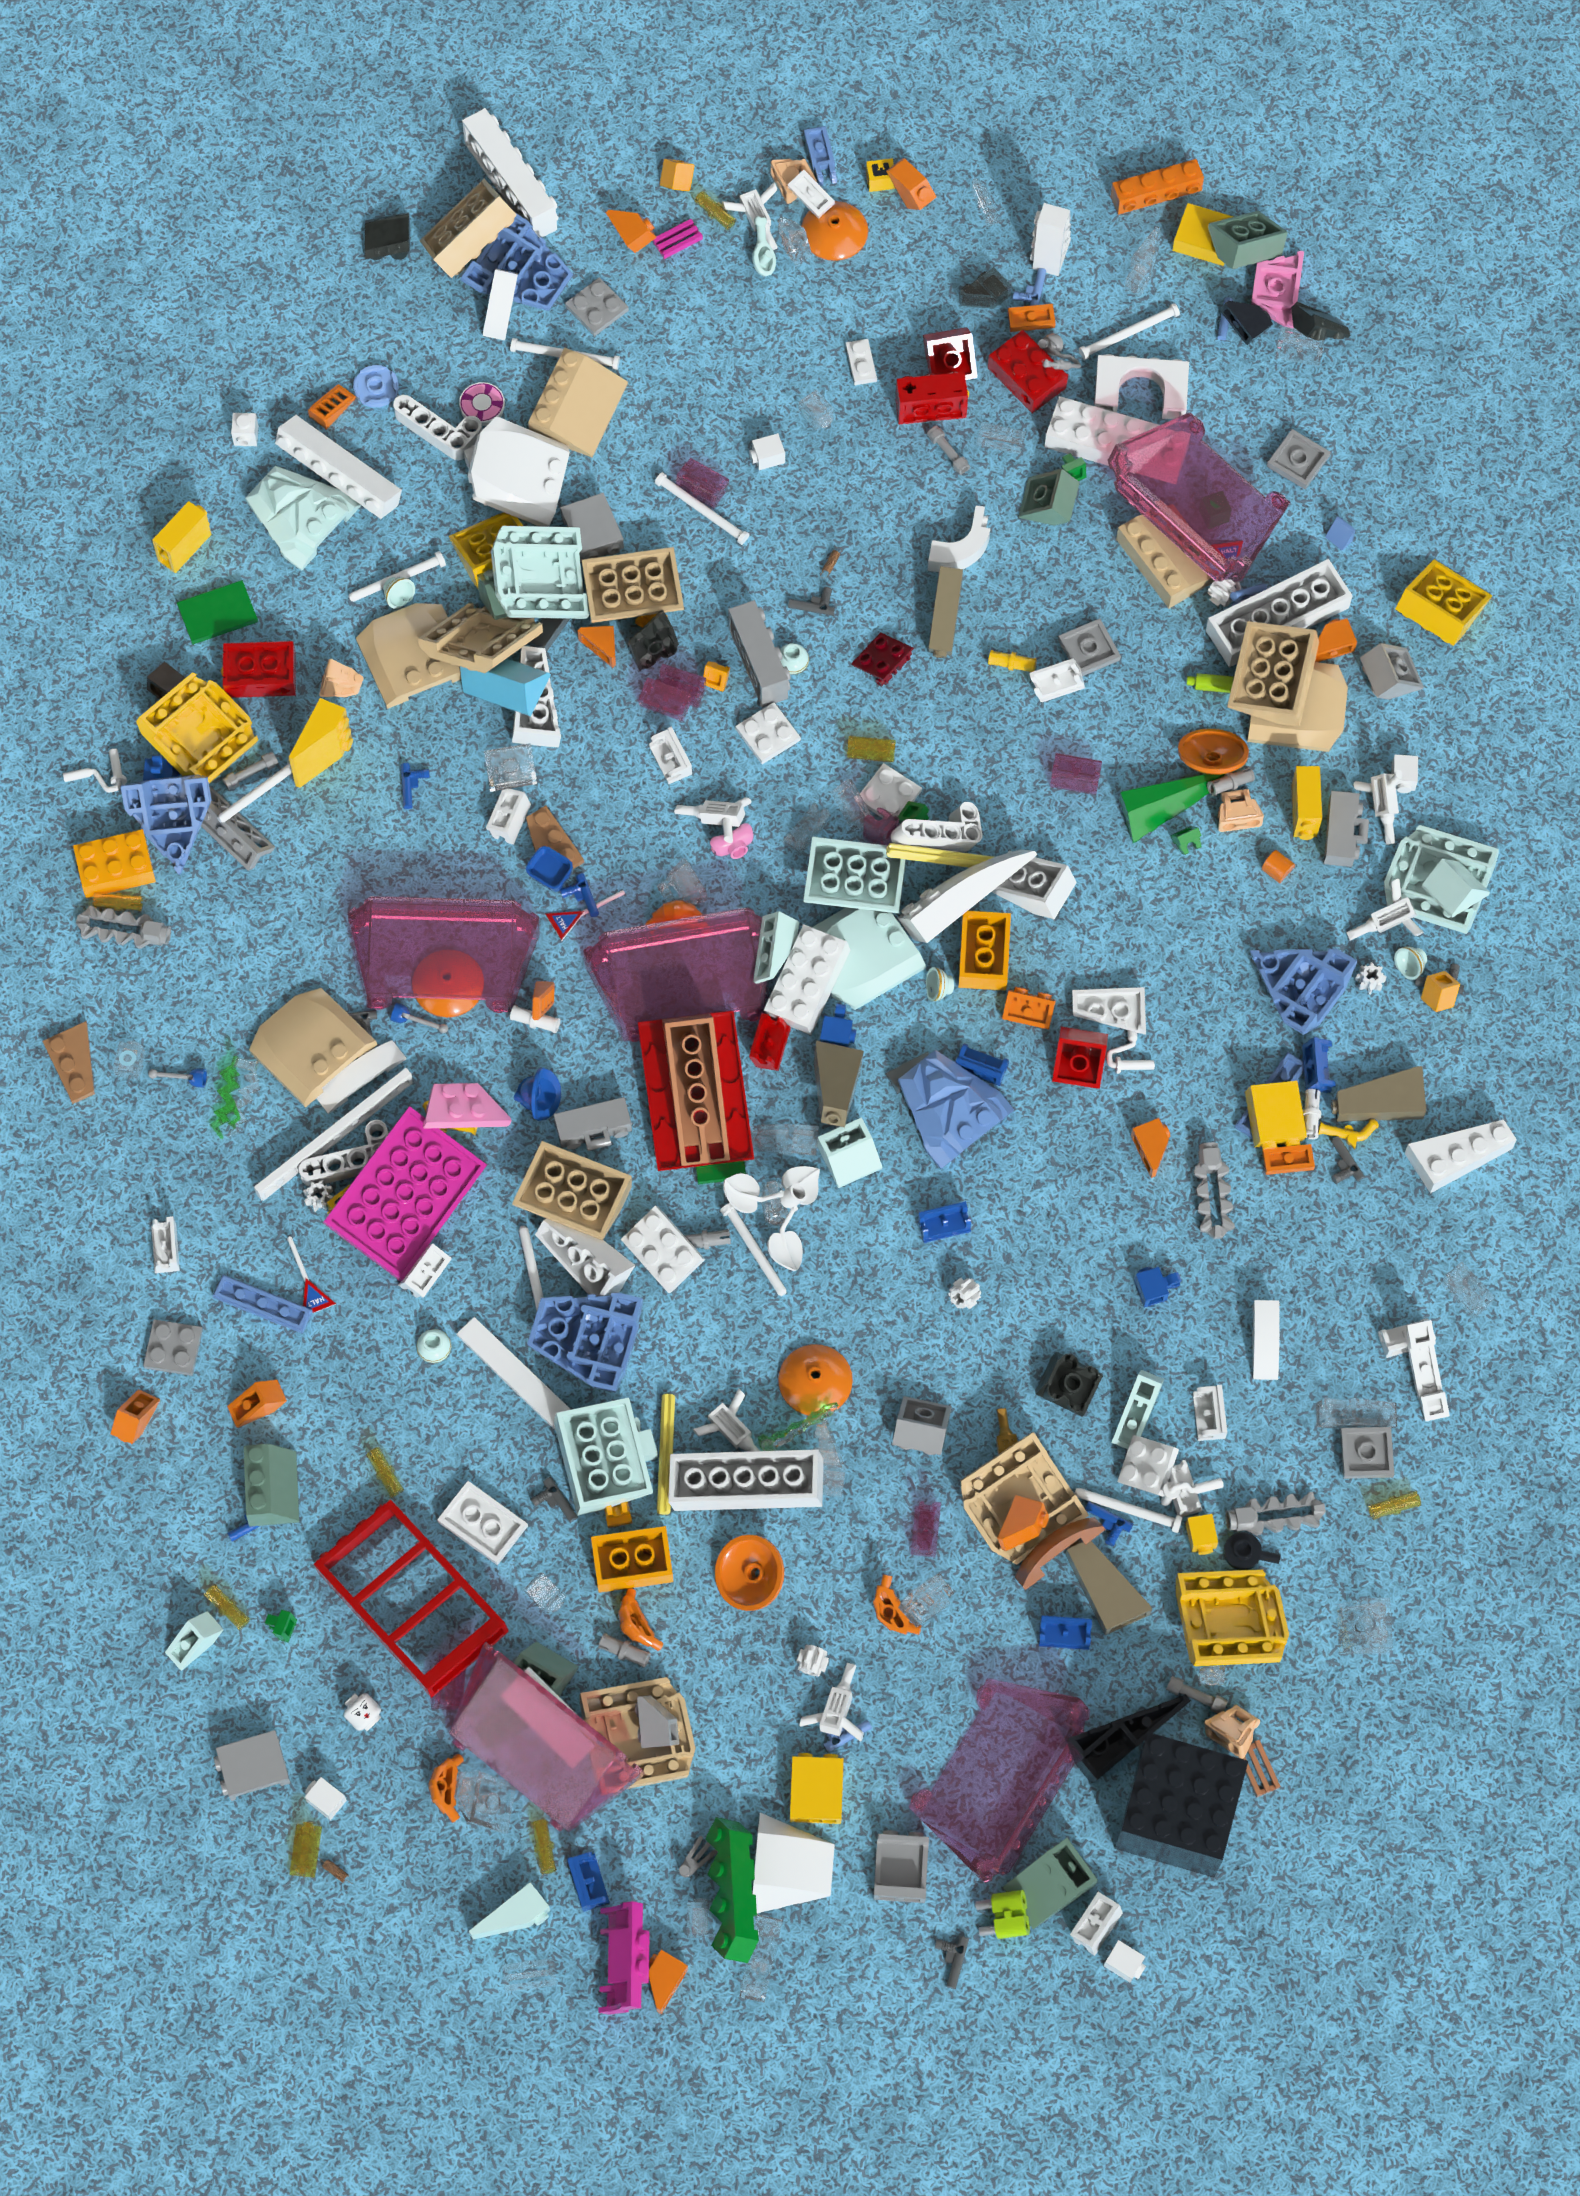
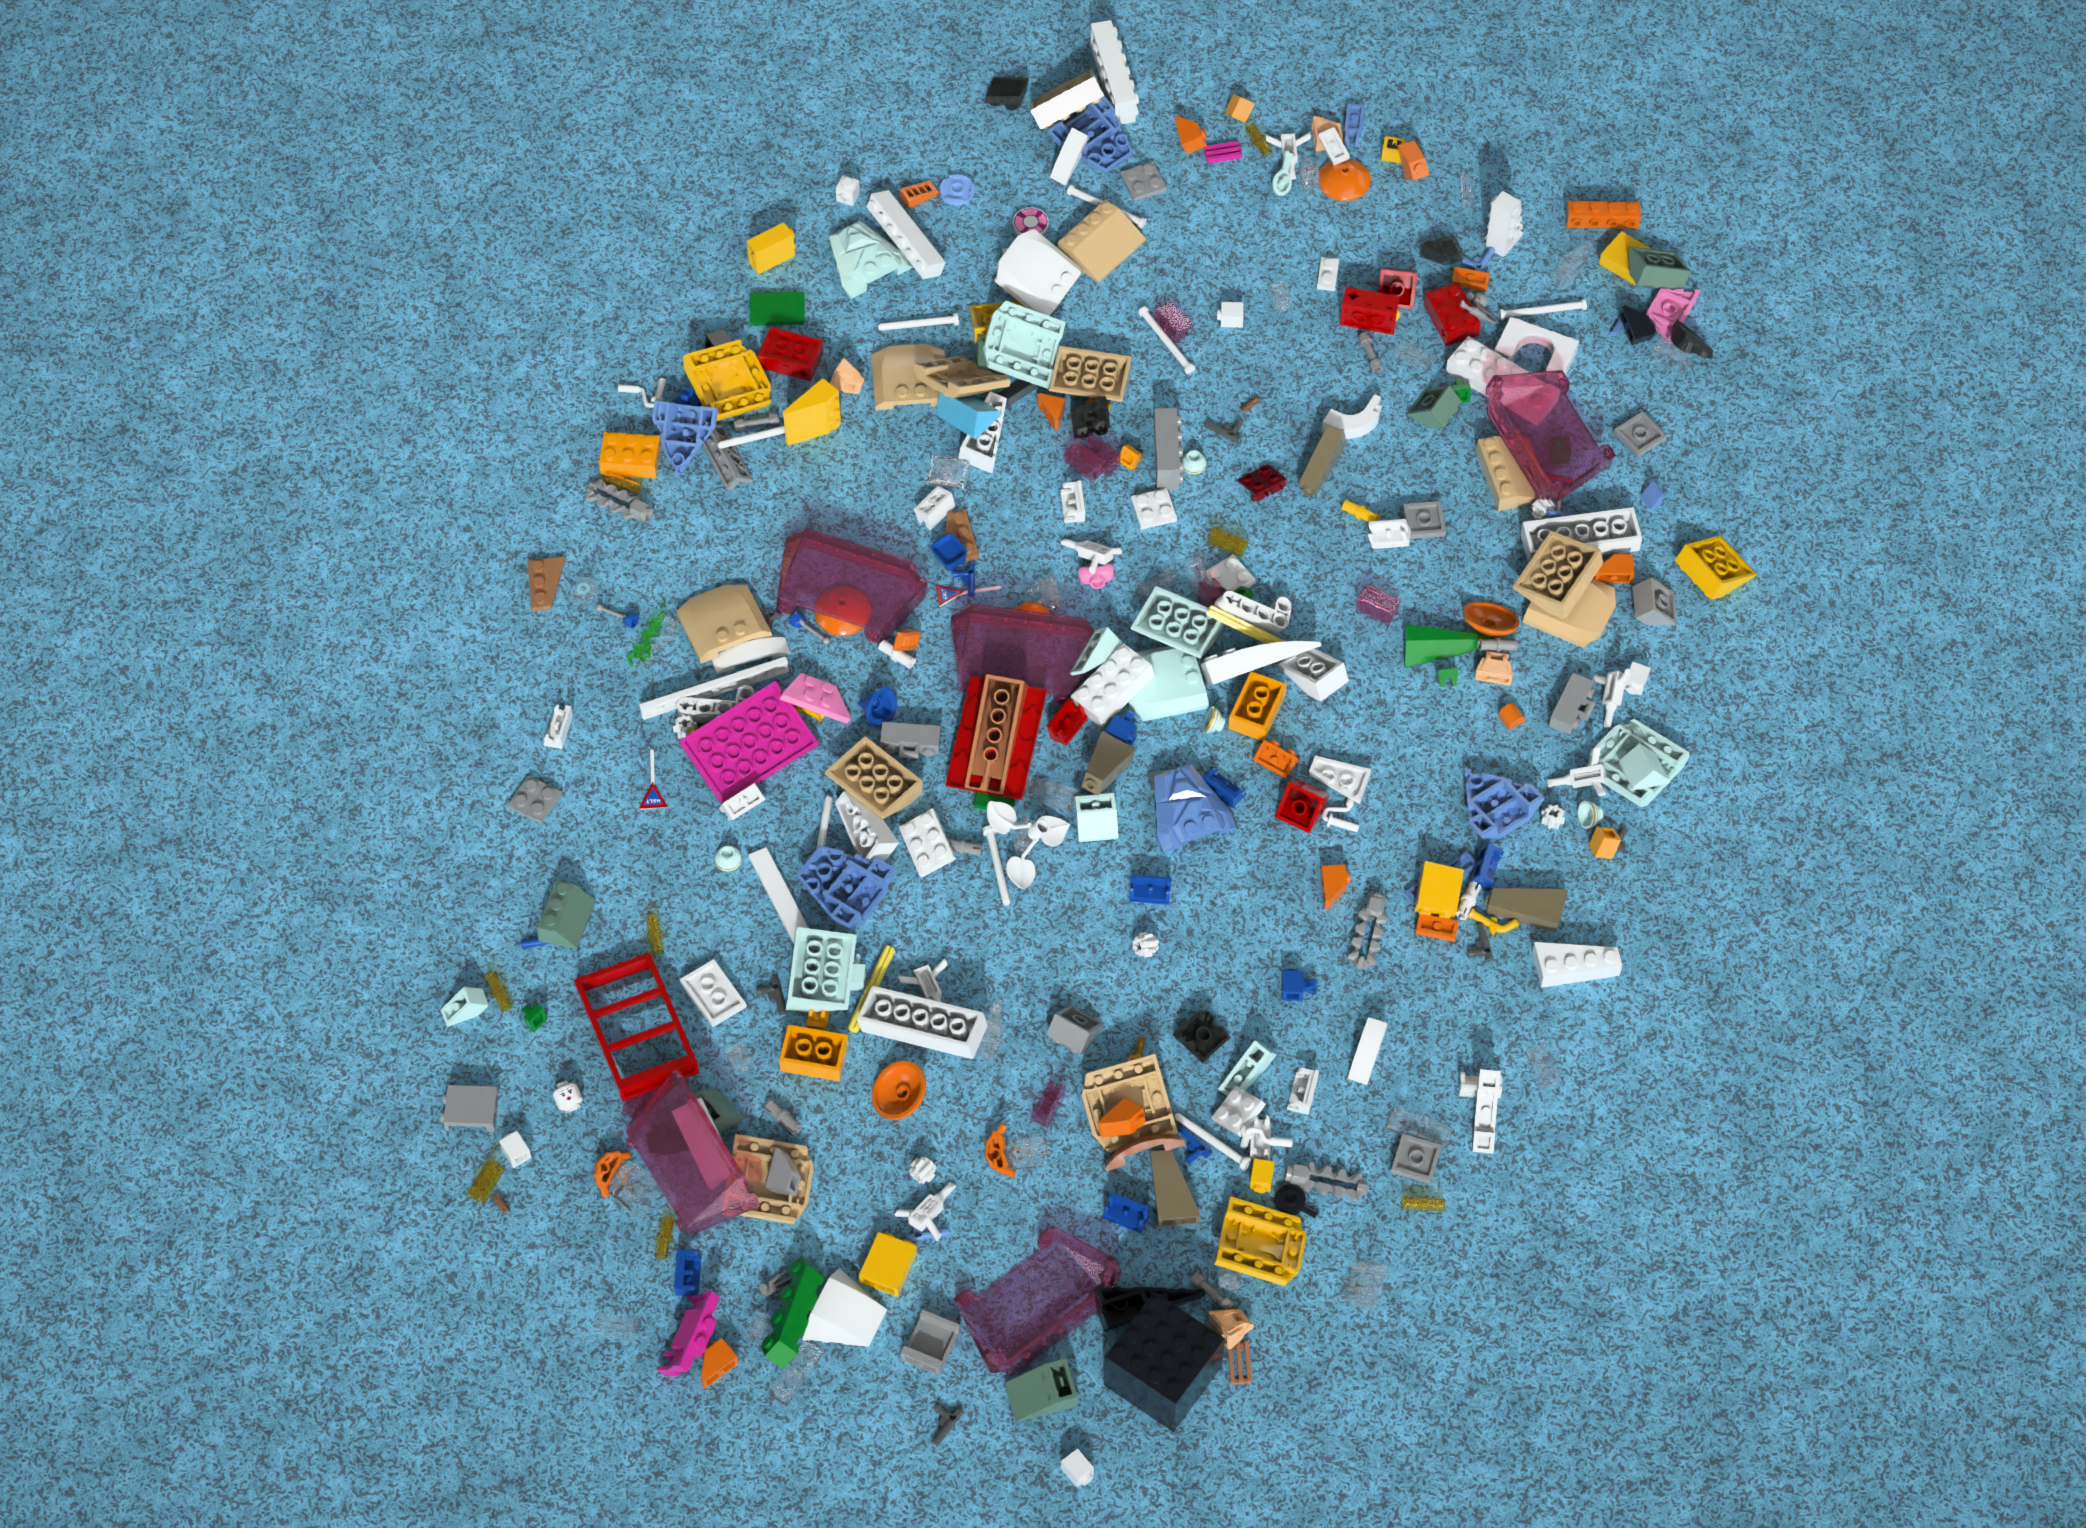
camera: 20 degrees right, 10 degrees down
(134, 1416) = (485, 837): orange slope -> none
(256, 1402) = (580, 855): orange slope -> none
(262, 1304) = (613, 790): medium blue tile -> none
(398, 589) = (915, 331): light aqua piece -> none
(410, 782) = (872, 465): blue hose -> none
(434, 425) = (987, 228): white beam -> none
(516, 1913) = (624, 1277): light aqua slope -> none
(597, 526) = (1079, 328): light grey panel -> none
(634, 1622) = (798, 1100): orange piece -> none
(796, 1428) = (948, 1000): piece -> none
(810, 1394) = (1006, 982): orange dish -> none
(1009, 1914) = (1000, 1404): lime piece -> none
(1096, 1923) = (1066, 1432): white hinge -> none
(1211, 682) = (1506, 570): lime cylinder -> none
(1306, 802) = (1549, 674): yellow brick -> none

